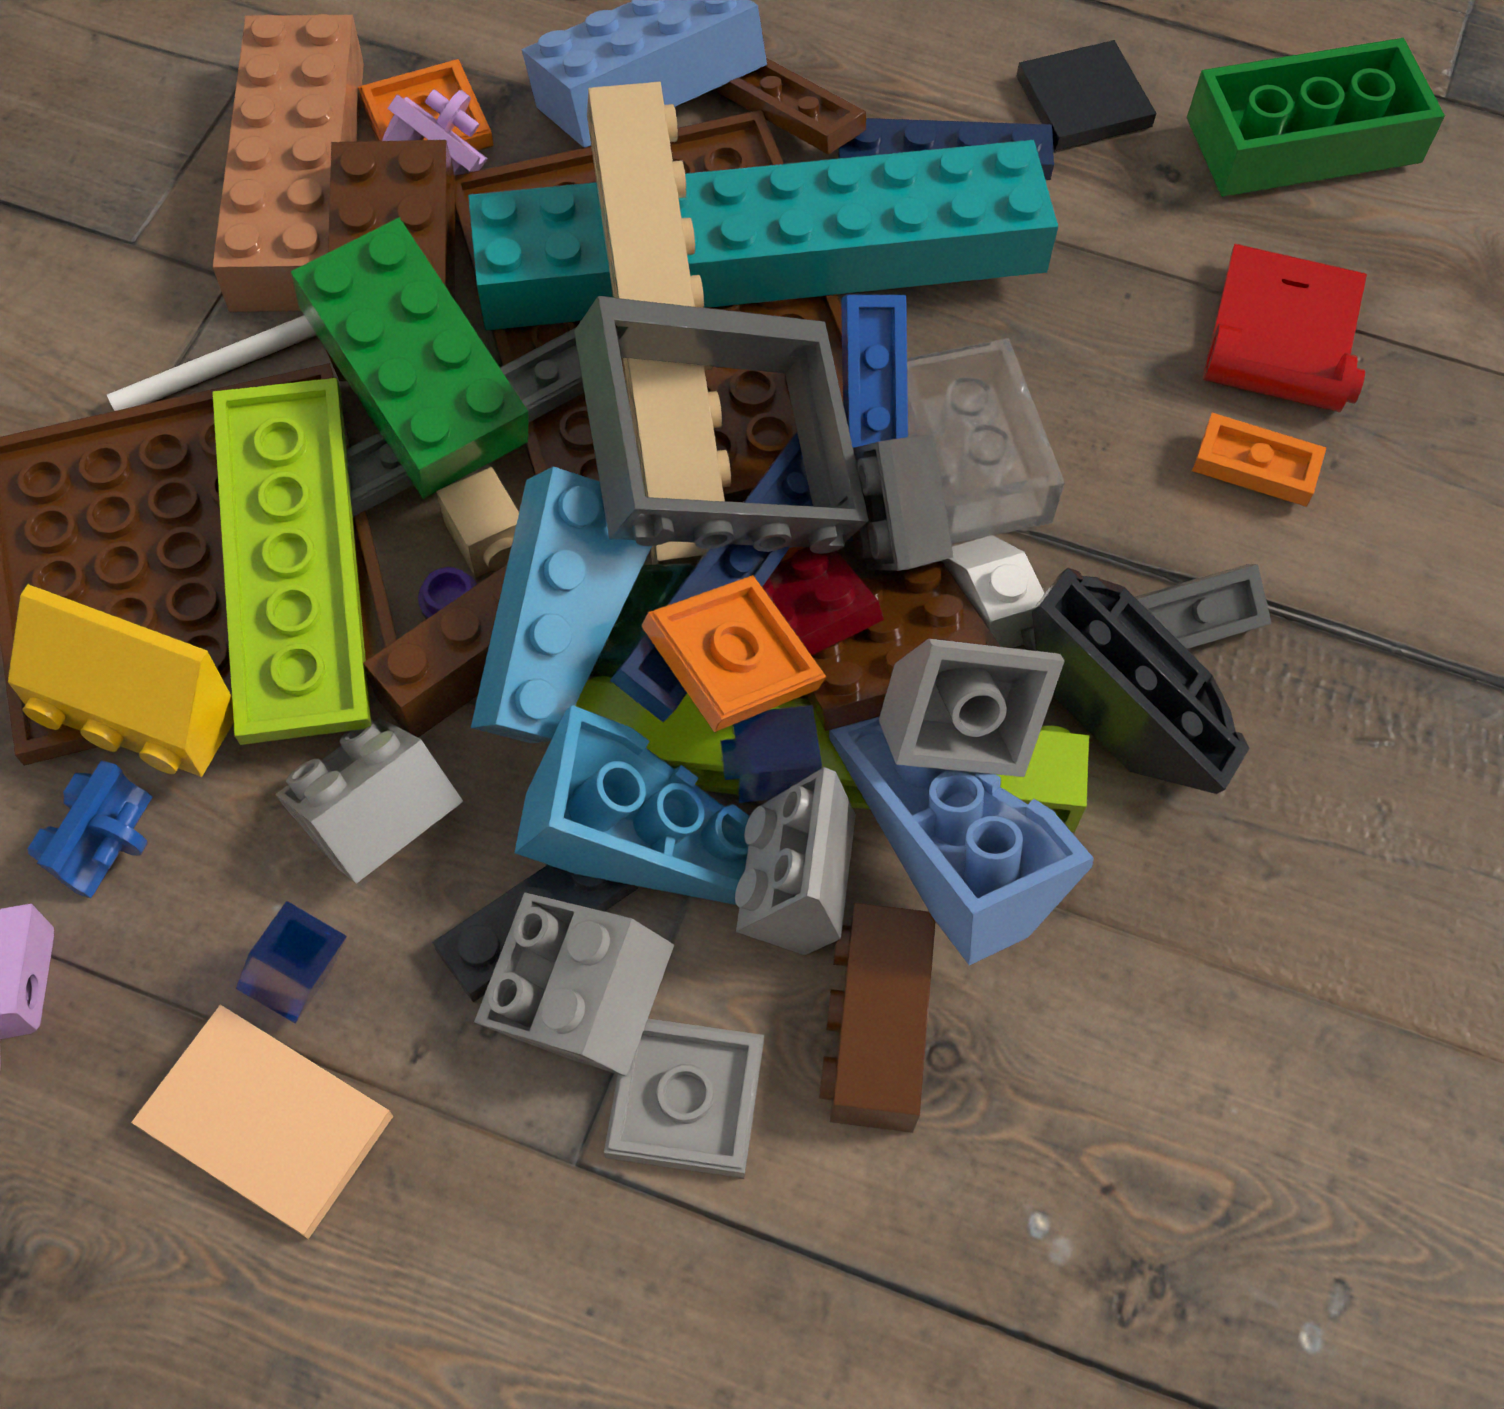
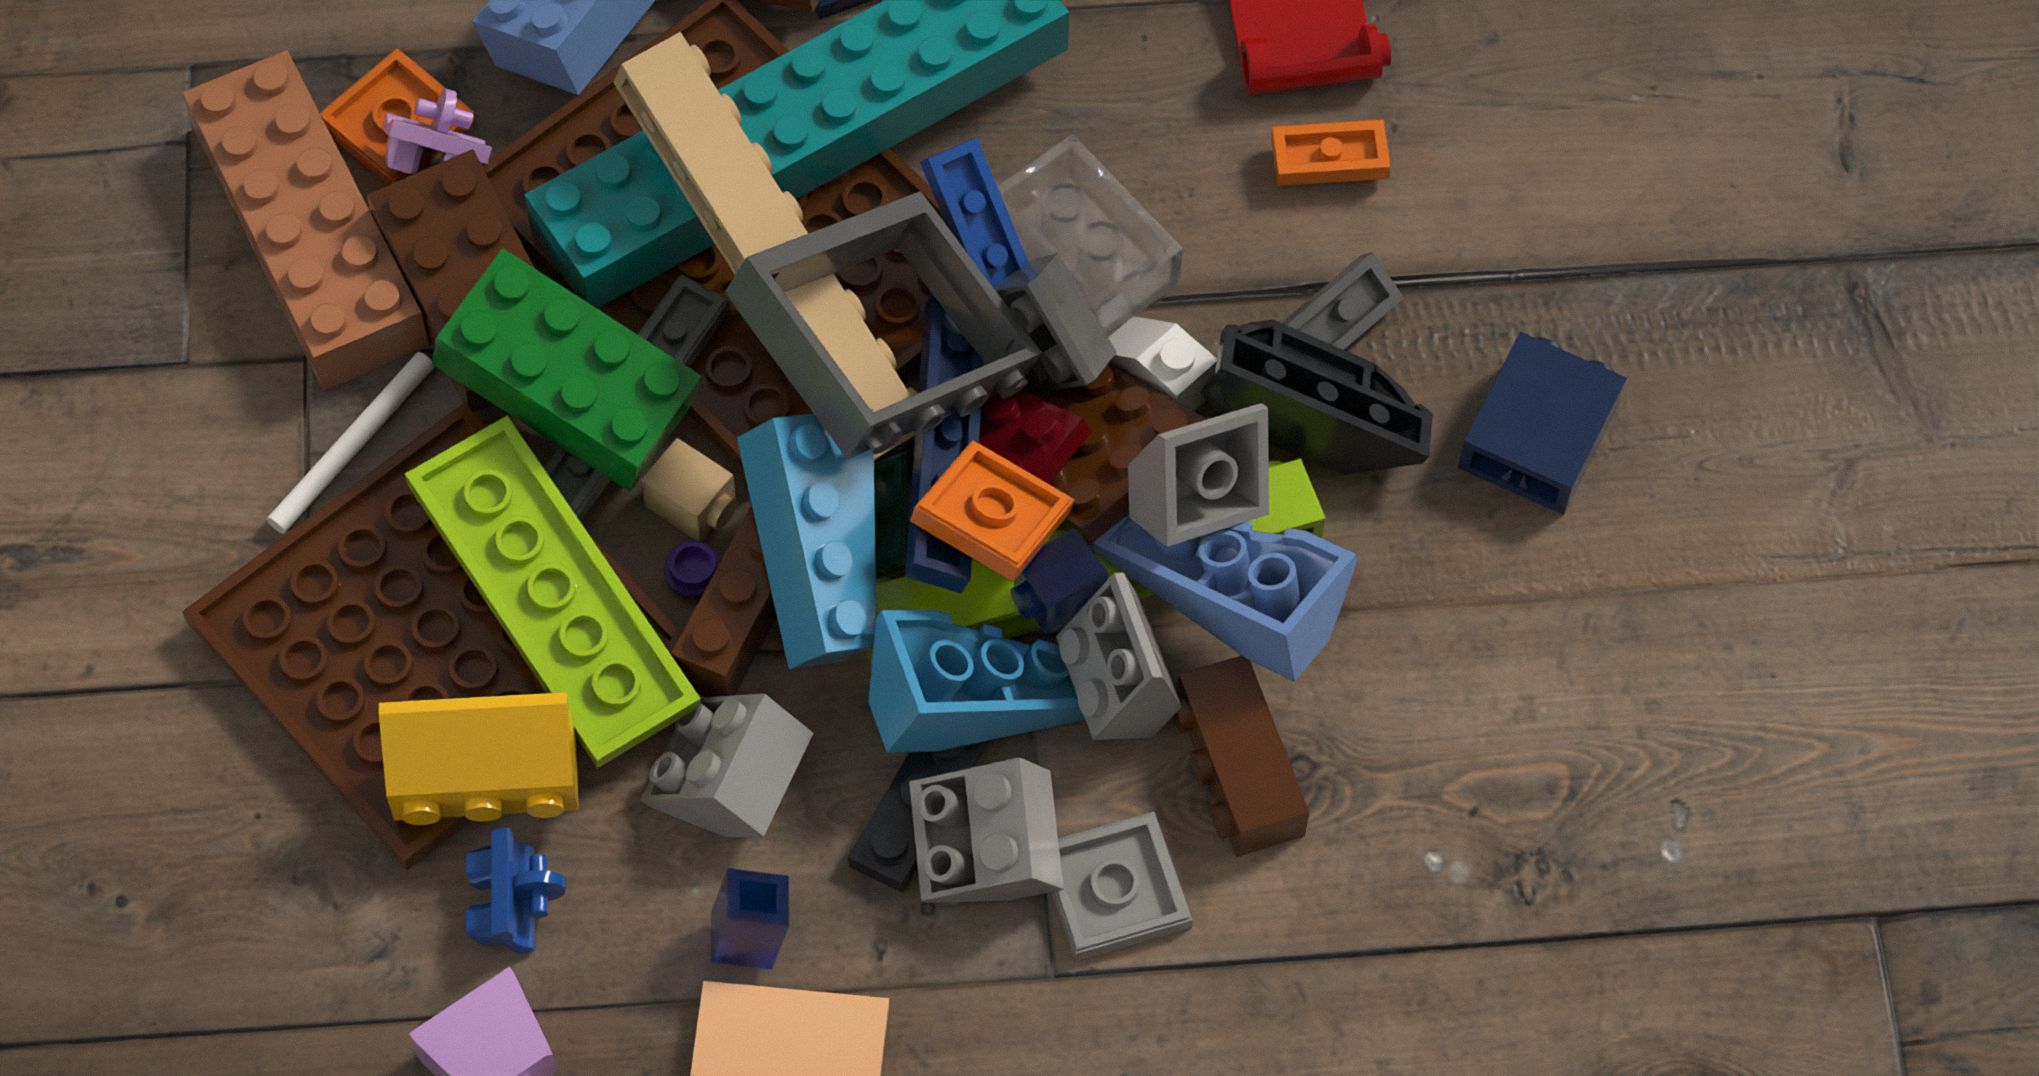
camera: 25 degrees left, 0 degrees up
(1363, 805) = (1542, 422): none -> dark blue brick

